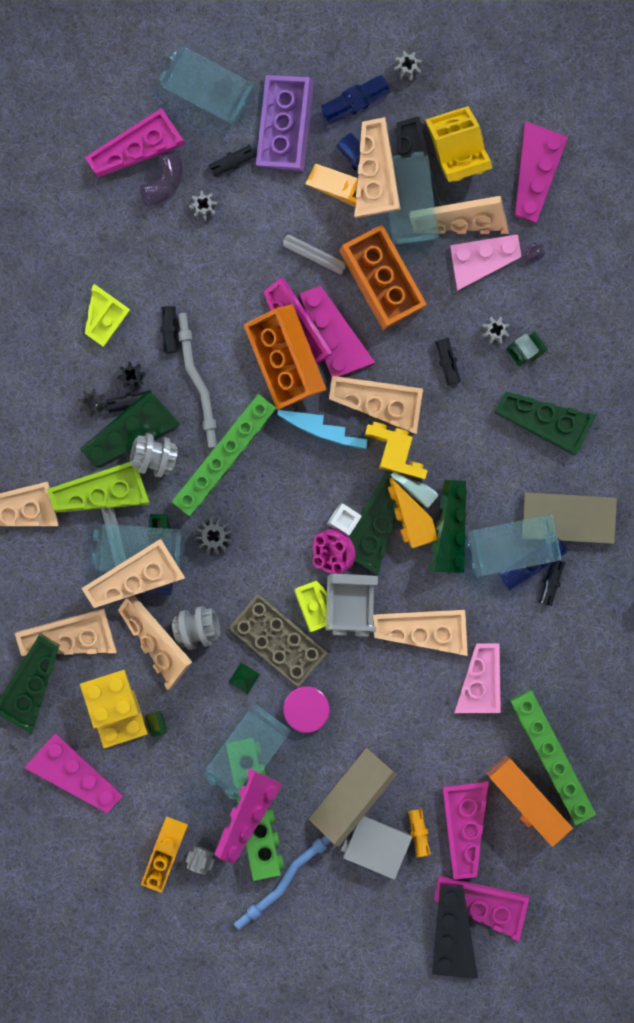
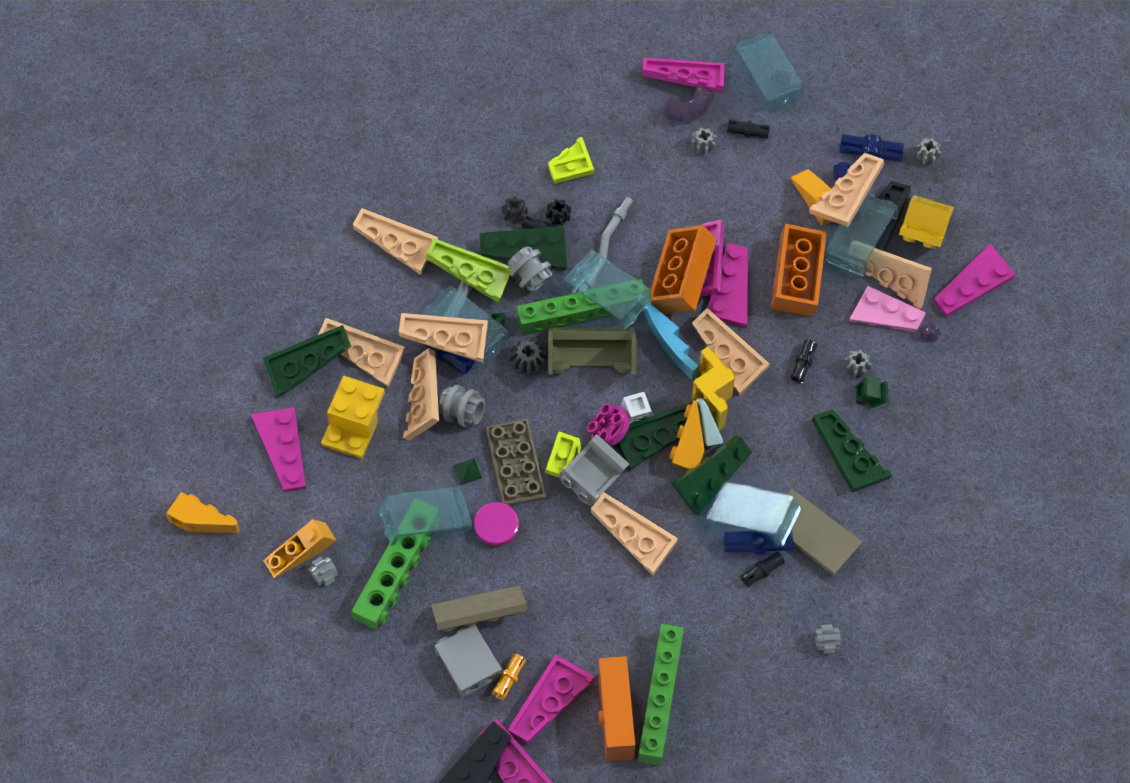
camera: 40 degrees right, 25 degrees down
(53, 894) = (194, 516): none -> light orange slope
(156, 723) = (375, 454): dark green slope -> none
(169, 329) = (611, 202): black pin -> none
(238, 427) = (609, 288): none -> clear light blue panel
(245, 818) = (399, 548): dark pink wing -> none
(255, 911) = (333, 641): medium blue bar -> none
(259, 484) = (591, 348): none -> olive windscreen
(285, 122) = (807, 130): medium lavender slope -> none
(314, 254) = (759, 226): light grey axle -> none
(482, 683) = (649, 604): bright pink wing -> none

